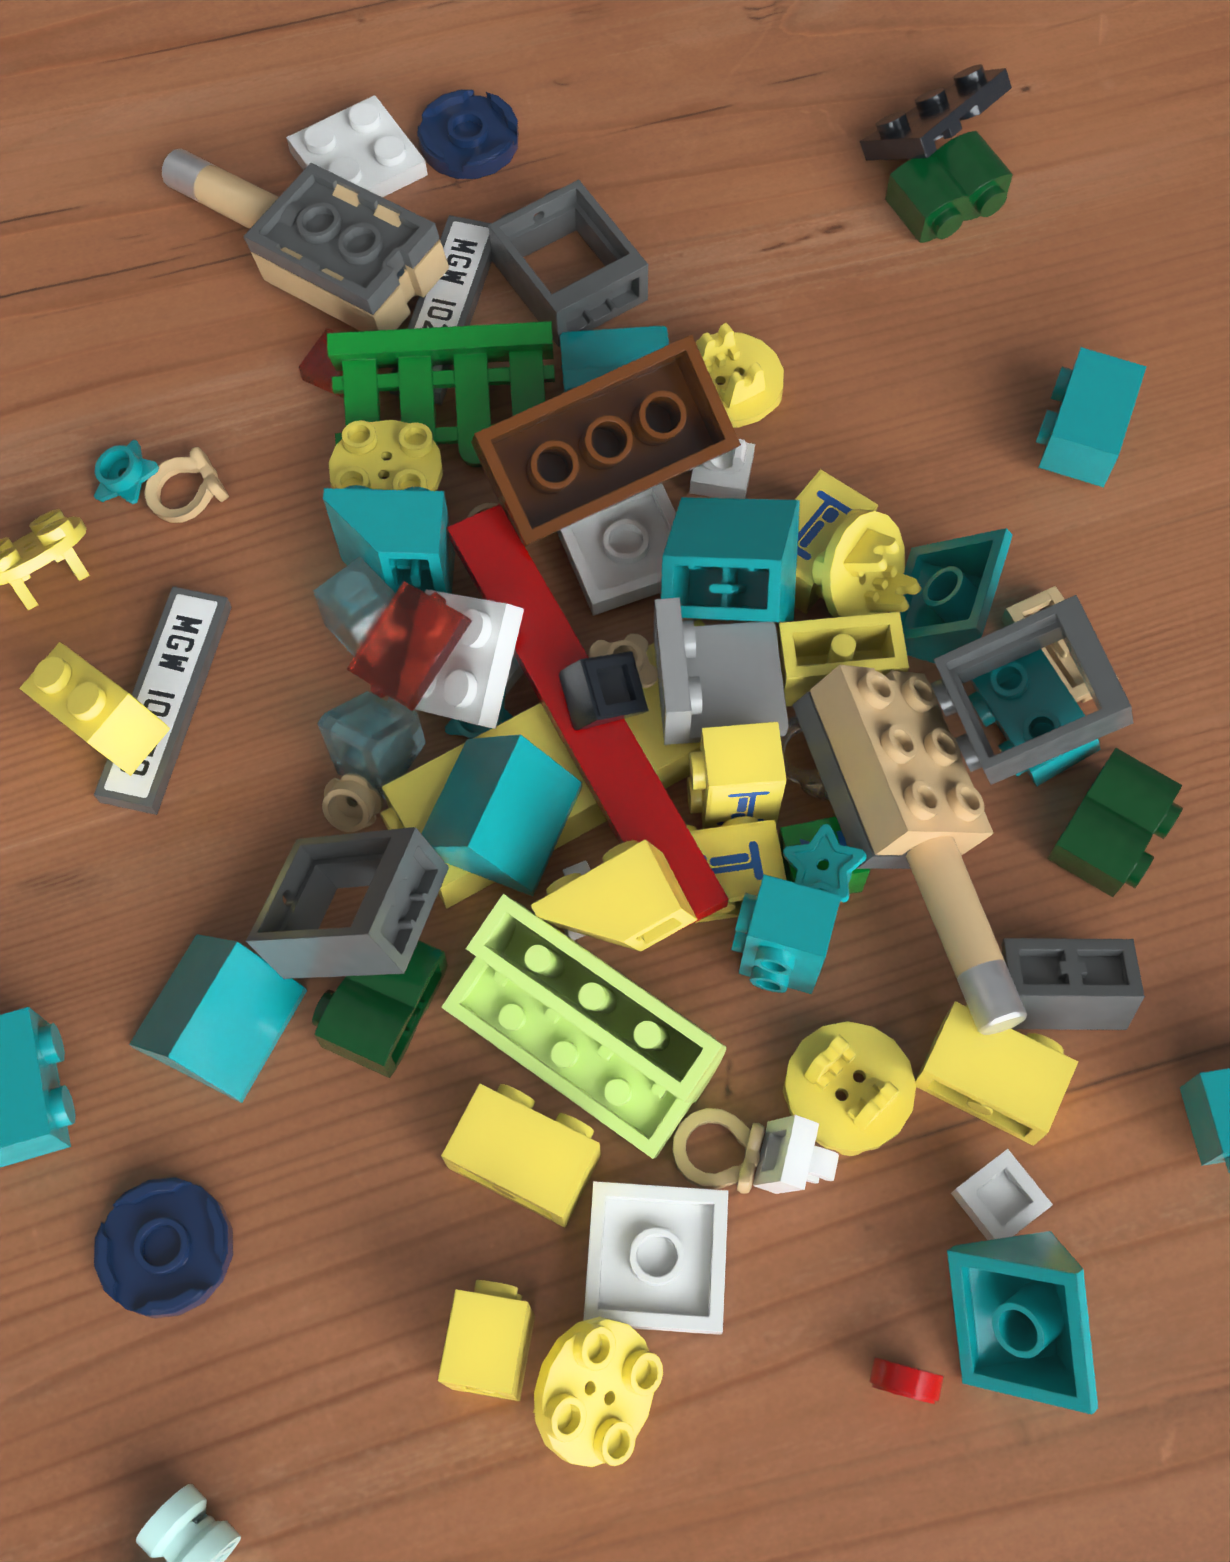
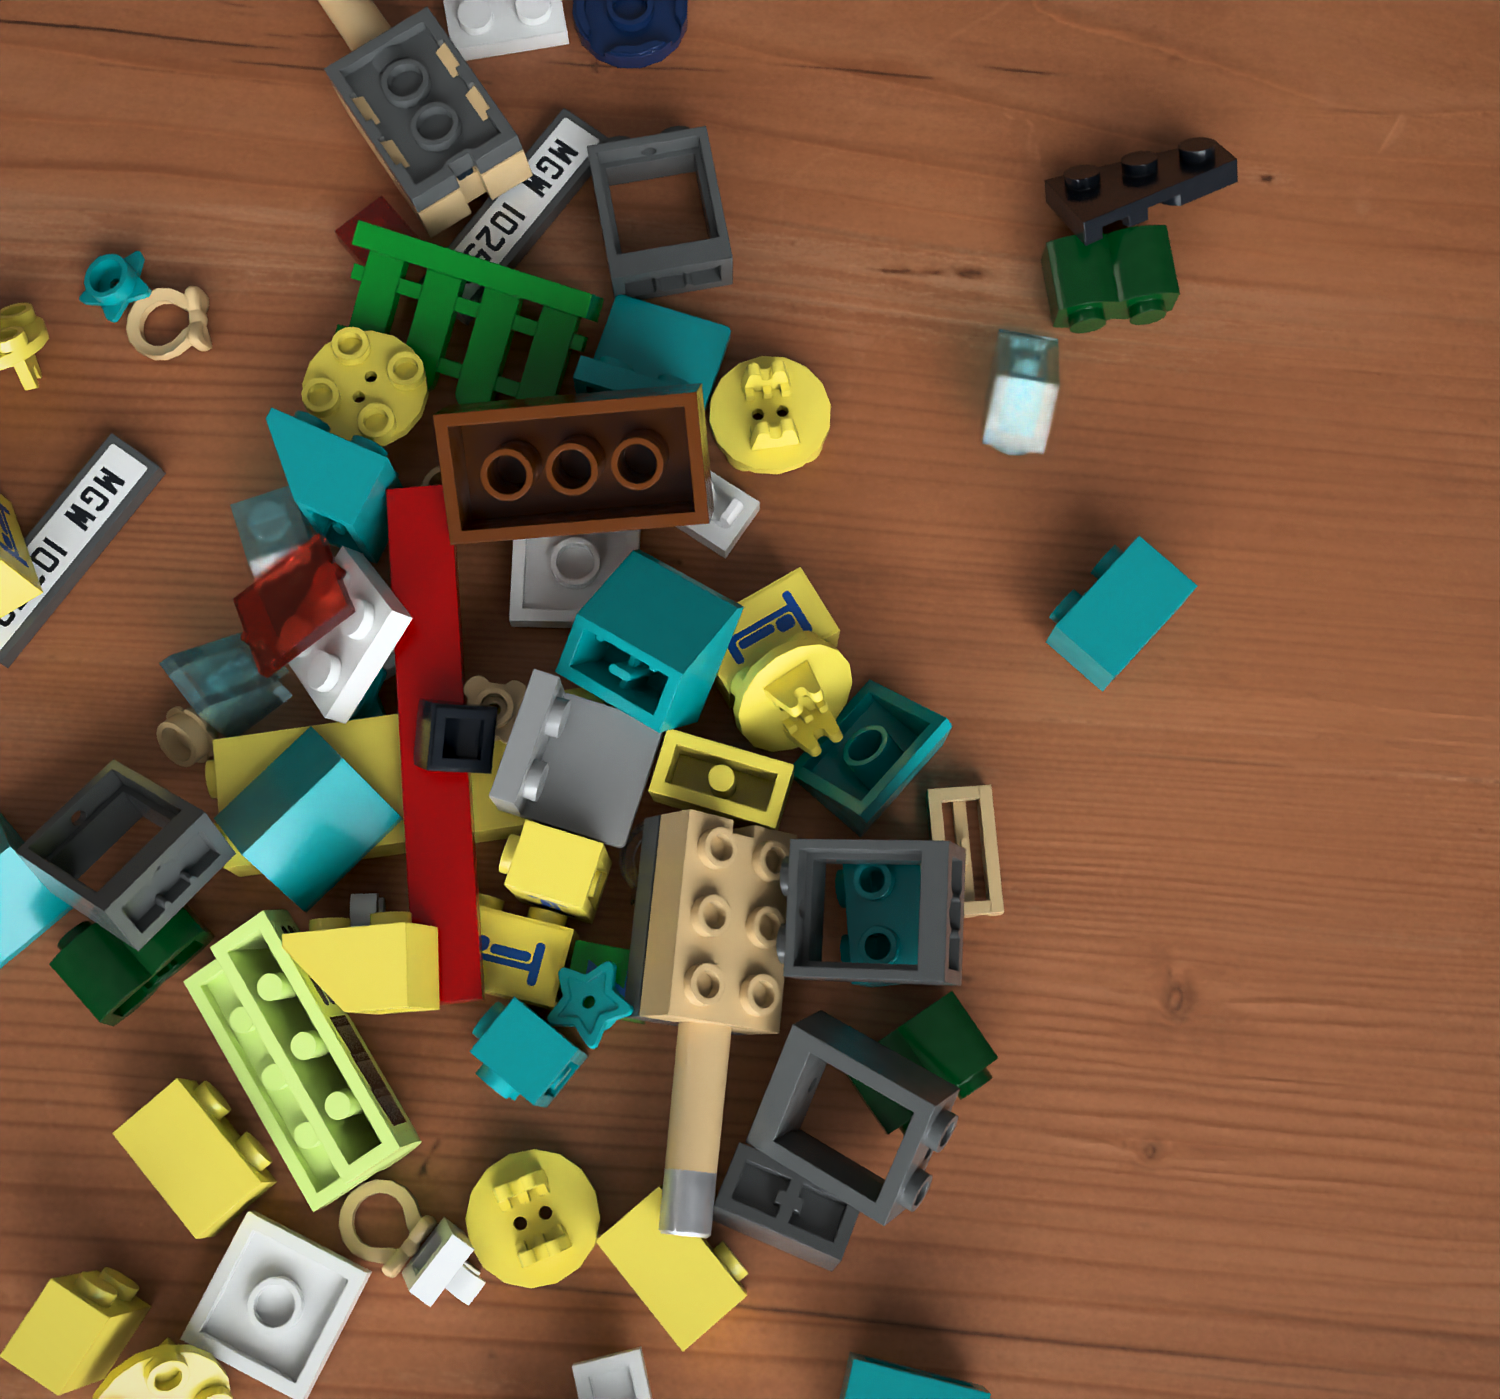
camera: 20 degrees right, 10 degrees up
(926, 291) = (1021, 392): none -> clear light blue slope
(1025, 874) = (778, 1122): none -> dark grey window

